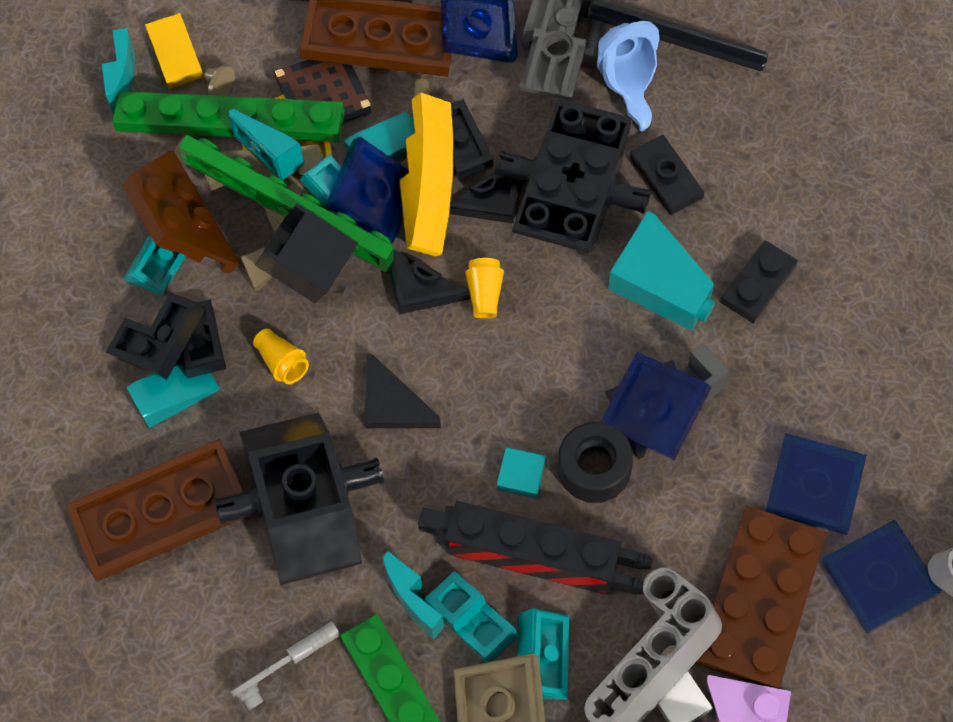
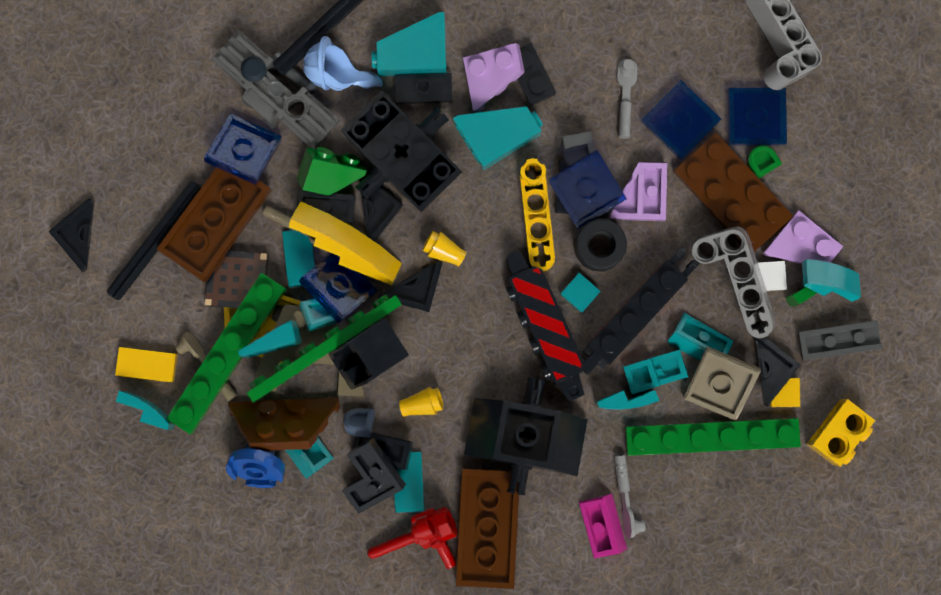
camera: 65 degrees left, 20 degrees up
(108, 207) = (256, 466): none -> blue tile
(121, 435) = (429, 530): none -> red piece
(220, 297) = (359, 422): none -> sand blue tile
(232, 655) = (603, 526): none -> dark pink slope
(392, 403) = (489, 348): black tile -> none
(455, 448) = (547, 325): none -> black hinge
(503, 115) = (328, 172): none -> green slope
(584, 369) = (537, 216): none -> yellow beam
(692, 484) = (645, 194): none -> lavender wing
(707, 137) = (413, 49): none -> teal slope
(733, 233) = (491, 72): none -> lavender wing
(826, 393) = (626, 79): none -> light grey piece
(828, 613) = (762, 160): none -> green tile

